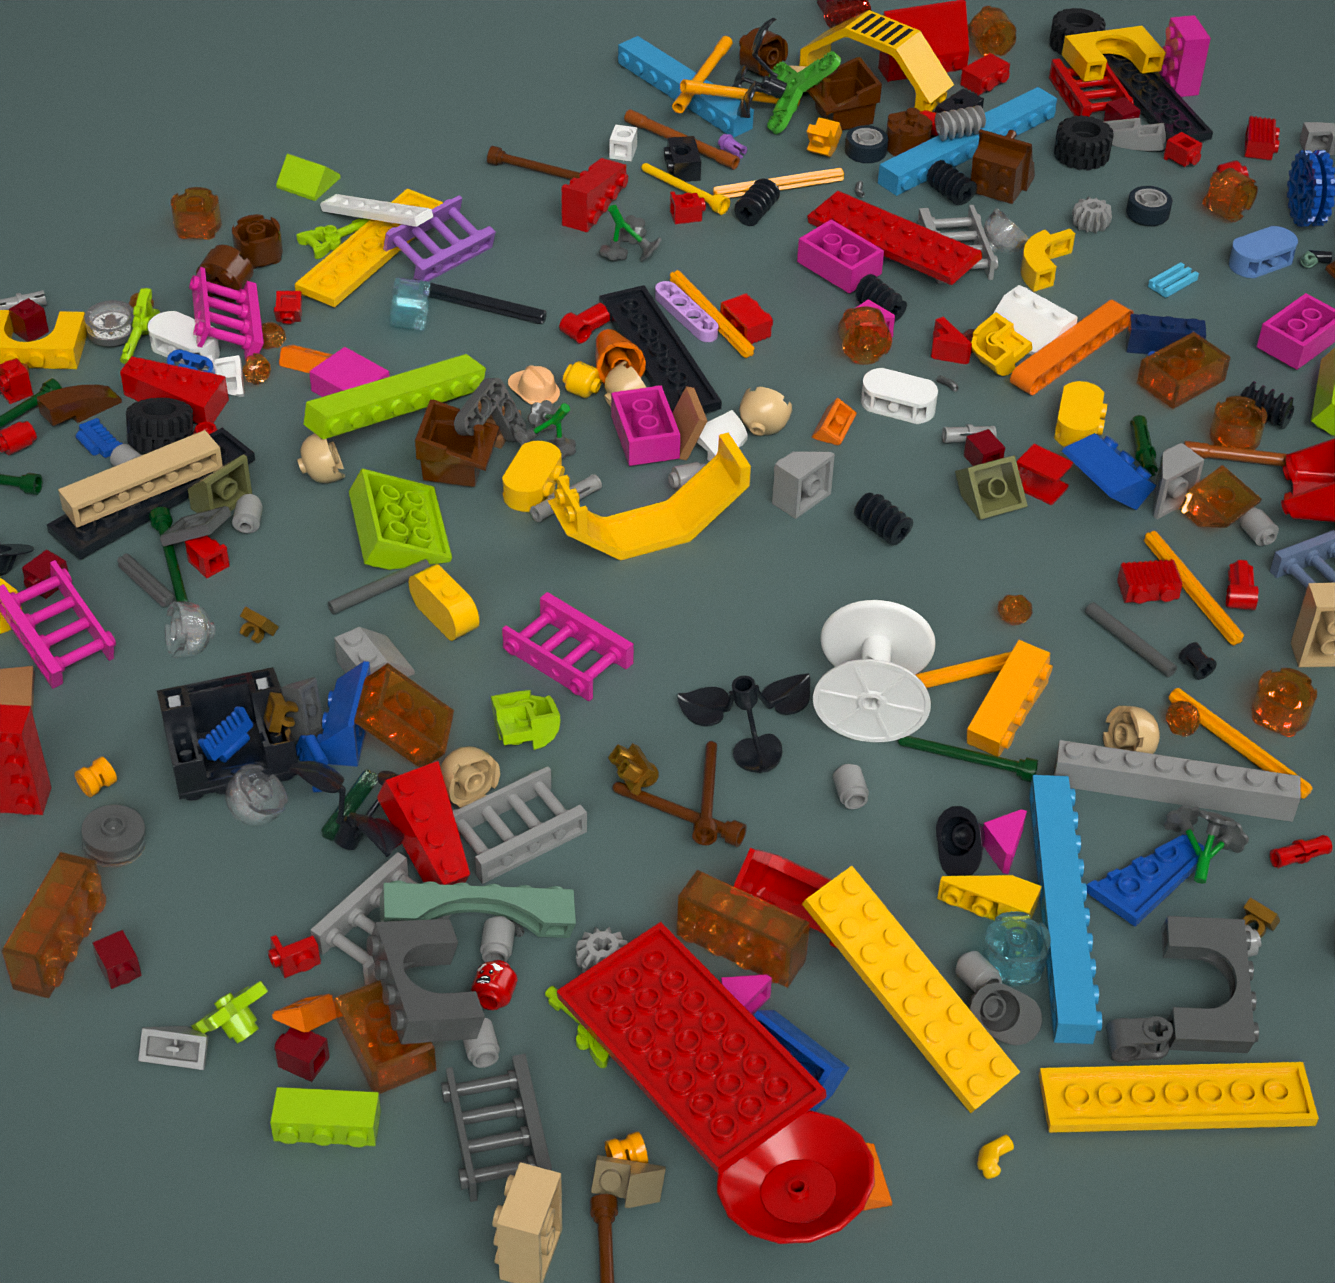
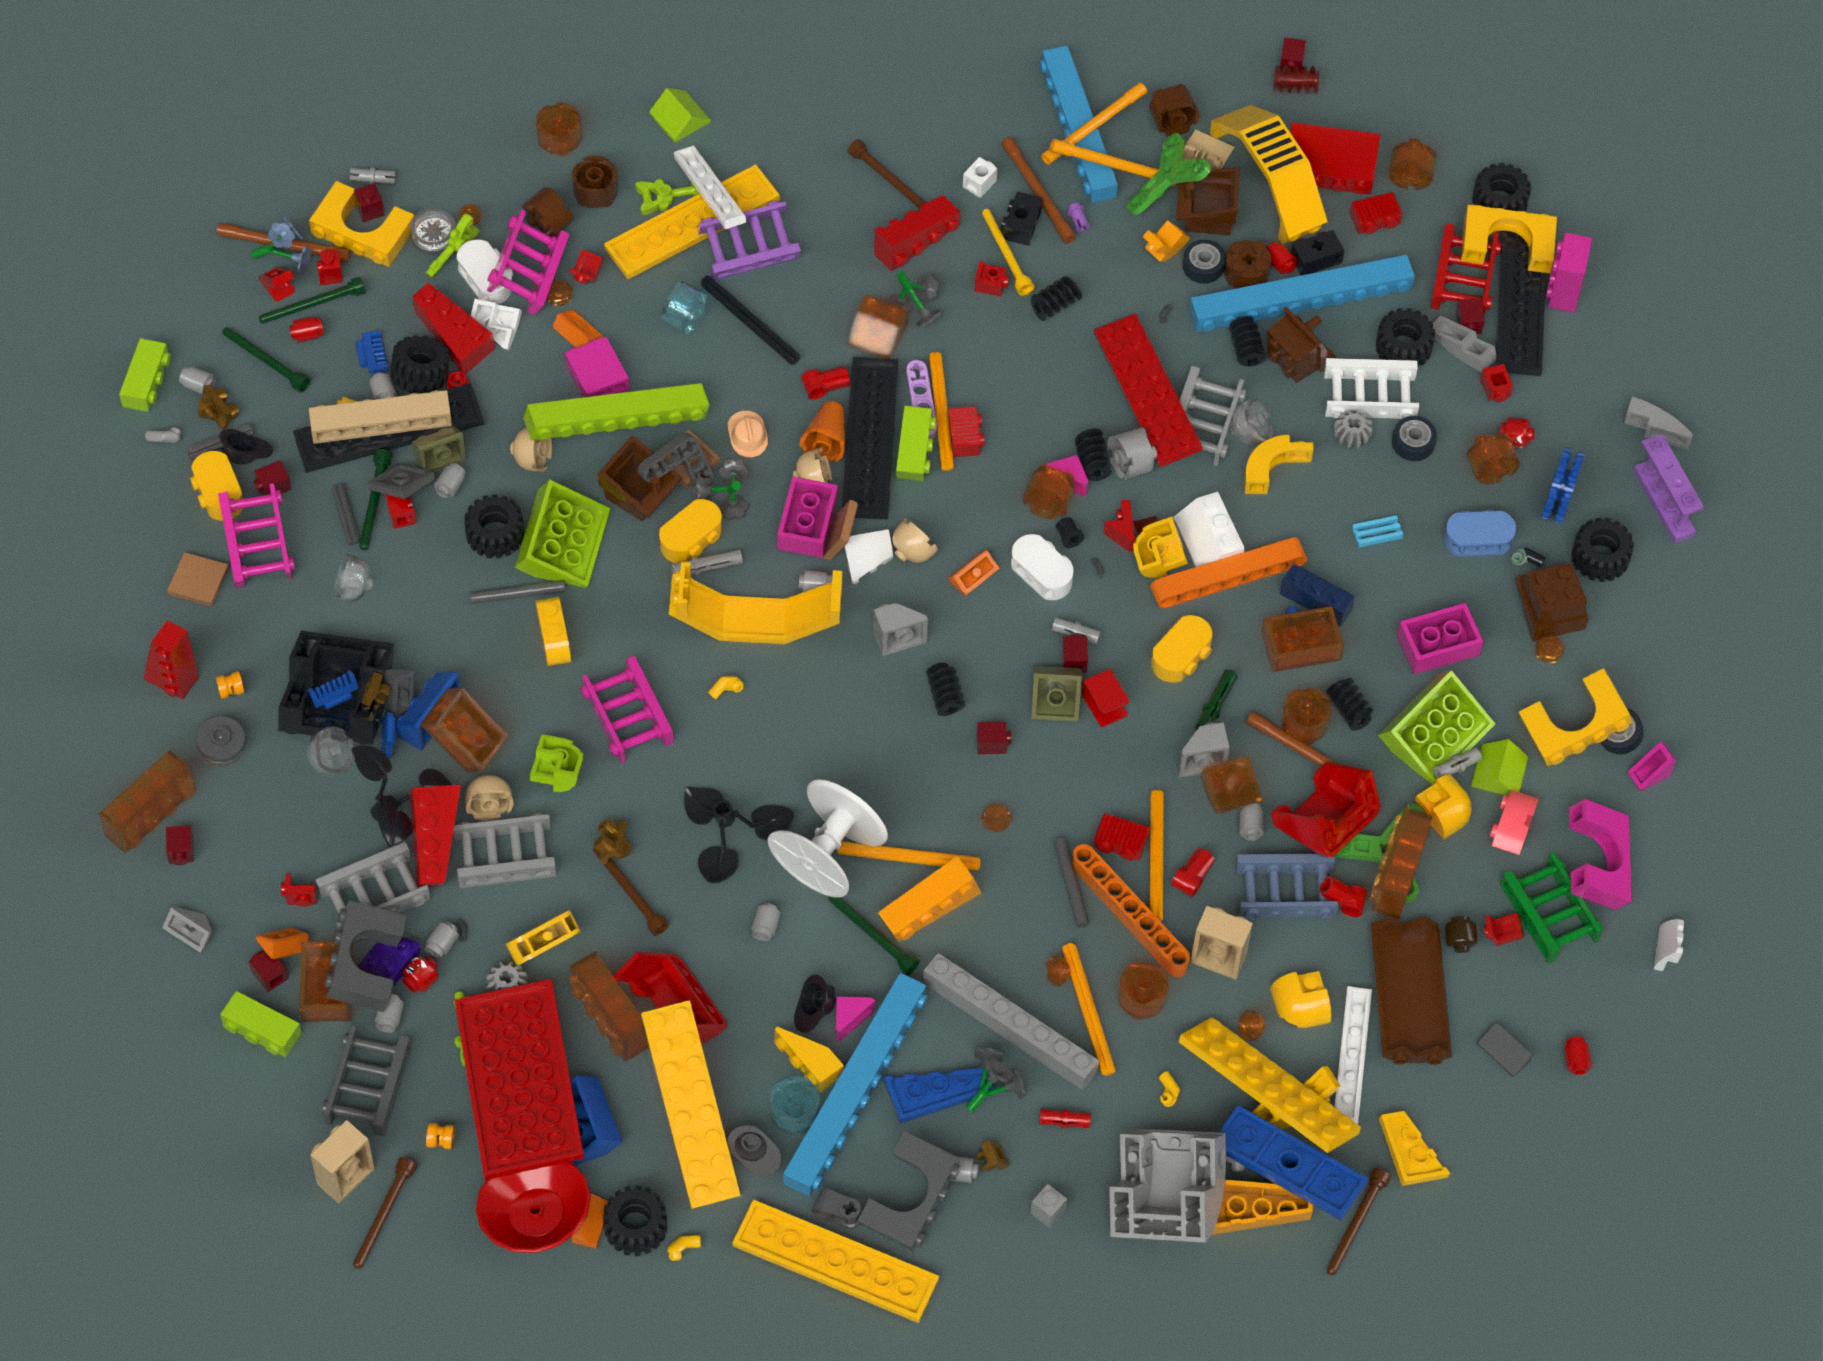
camera: 25 degrees right, 15 degrees up
(76, 402) = (371, 309): reddish brown slope -> none
(191, 360) = (477, 304): blue beam -> none
(233, 1013) = (234, 922): lime plant -> none
(256, 369) = (527, 329): clear orange plate -> none
(258, 623) = (408, 591): pearl gold tile -> none
(321, 534) = (494, 510): none -> black tyre
(353, 801) = (399, 781): clear green axle -> none
(371, 647) = (477, 660): light grey slope -> none
(450, 978) = (390, 960): none -> dark purple hinge
(540, 910) = (386, 893): sand green arch -> none
(581, 379) = (785, 445): yellow head -> none
(606, 267) = (878, 327): none -> clear orange slope
(619, 888) = (543, 937): none -> yellow brick
(627, 1179) = (431, 1157): dark tan slope -> none
(657, 590) = (726, 683): none -> yellow arm
(705, 828) = (633, 915): reddish brown piece -> none
(708, 338) = (915, 443): none -> lime brick
(749, 990) = (584, 1057): dark pink slope -> none
(769, 85) = (1144, 165): black plant -> none
(785, 182) = (1095, 279): light orange axle -> none
(839, 255) = (1087, 393): dark pink brick -> none
(903, 362) = (1069, 533): none -> black bush
(918, 283) = (1131, 453): none -> light grey brick
(918, 1171) = (635, 1202): none -> black tyre
(959, 543) = (992, 738): none -> dark red brick
(960, 122) = (1288, 280): light grey piece -> none
(976, 971) = (758, 1110): light grey brick -> none
(1078, 170) = (1371, 370): none -> white fence
(1111, 469) = (1158, 718): blue slope -> none
(1132, 730) = (1004, 970): tan cylinder -> none
(1197, 660) = (1106, 924): black bush -> none
(1217, 640) = (1133, 920): none -> orange beam
(1261, 138) = (1584, 395): red brick -> none

